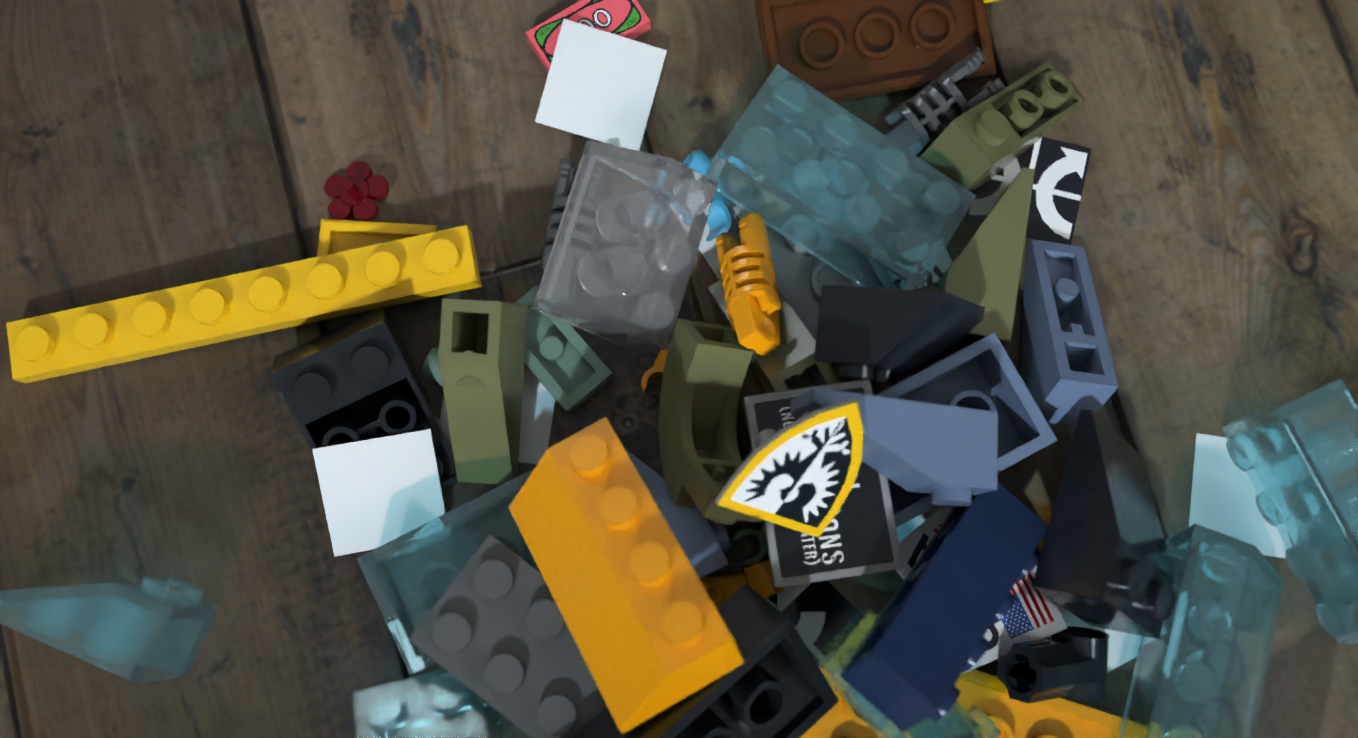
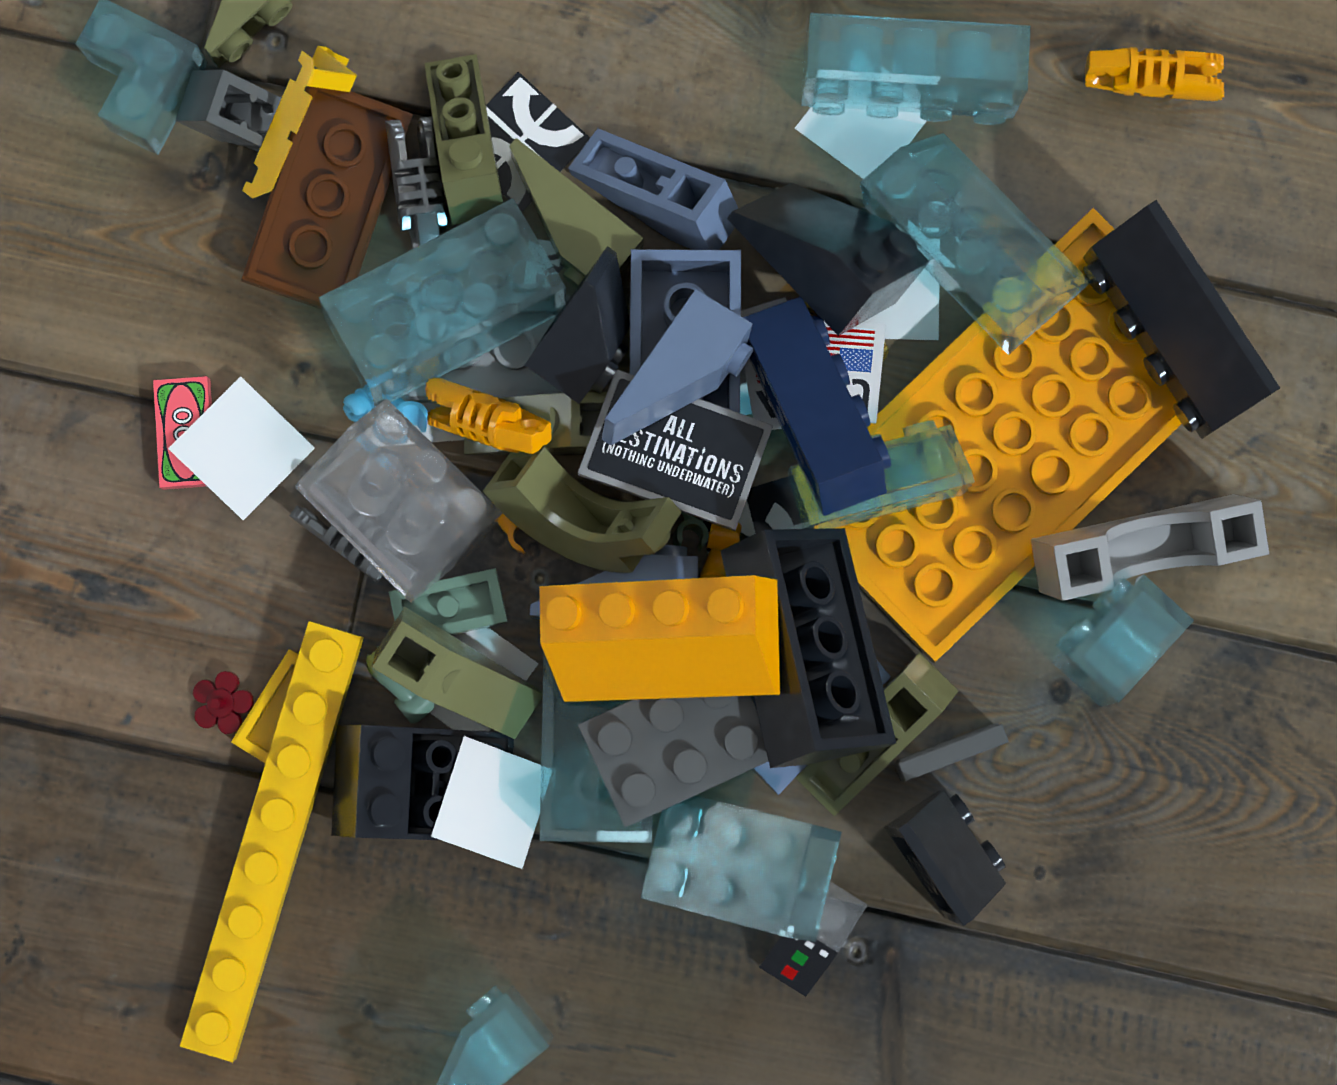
camera: 60 degrees left, 5 degrees up
(801, 470) = (662, 462): shield -> none
(1062, 666) = (913, 341): black piece -> none

